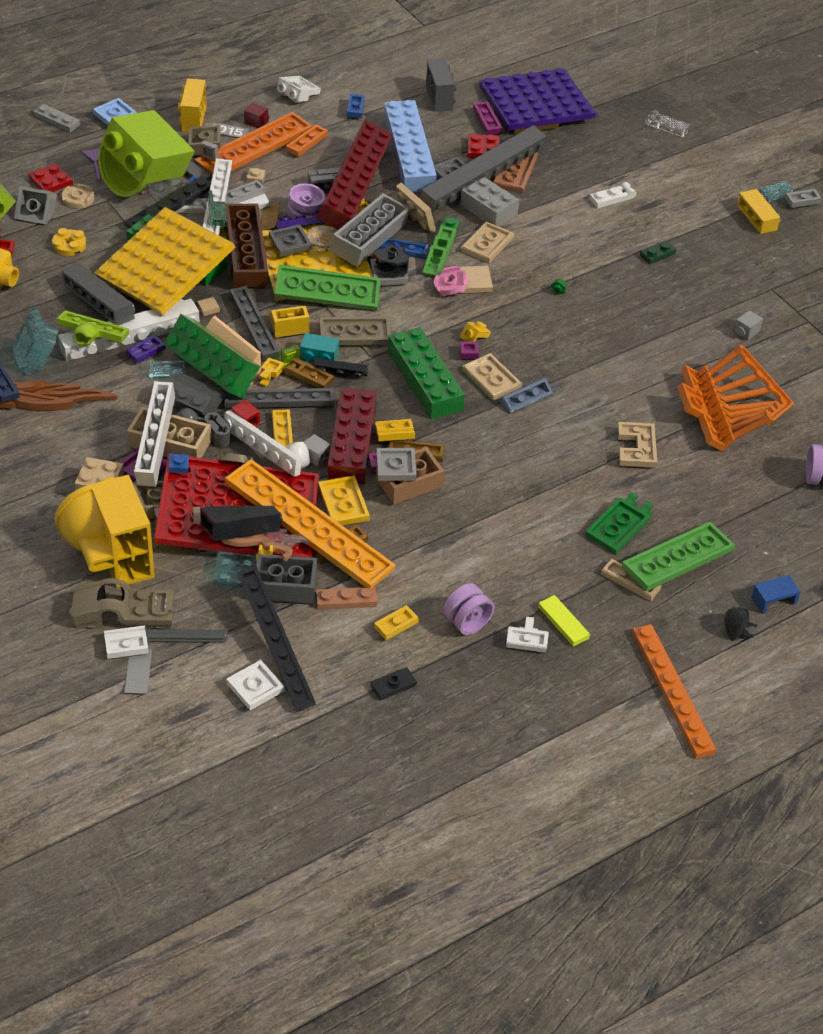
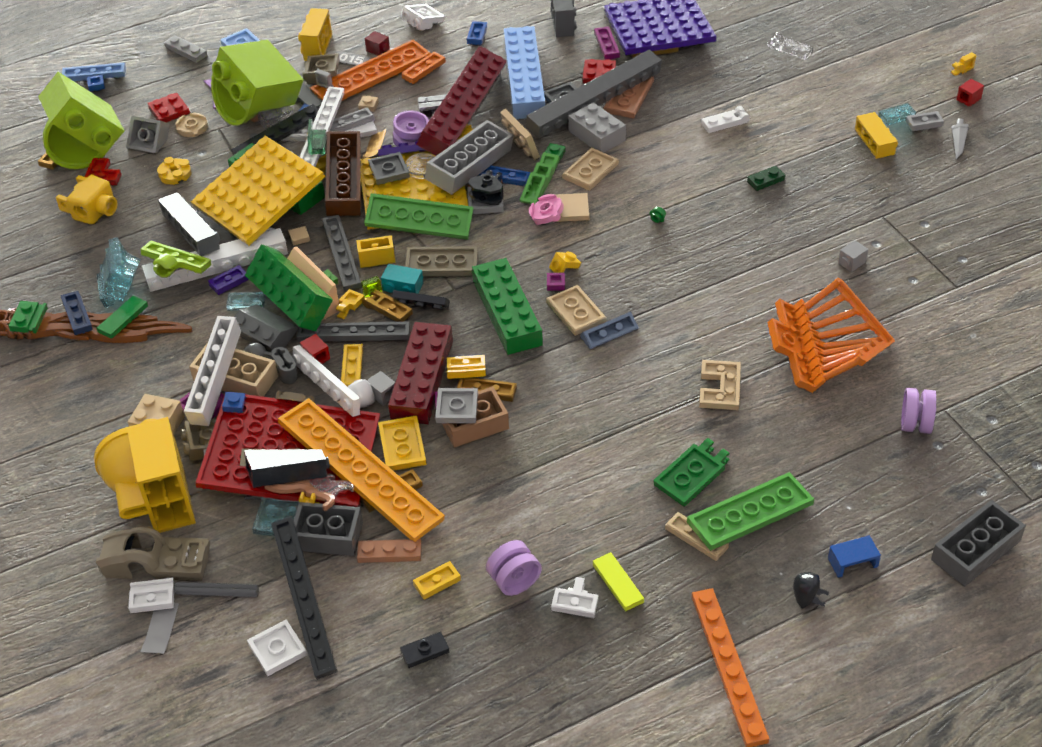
camera: 10 degrees right, 0 degrees up
(46, 385) = (122, 317): none -> green tile

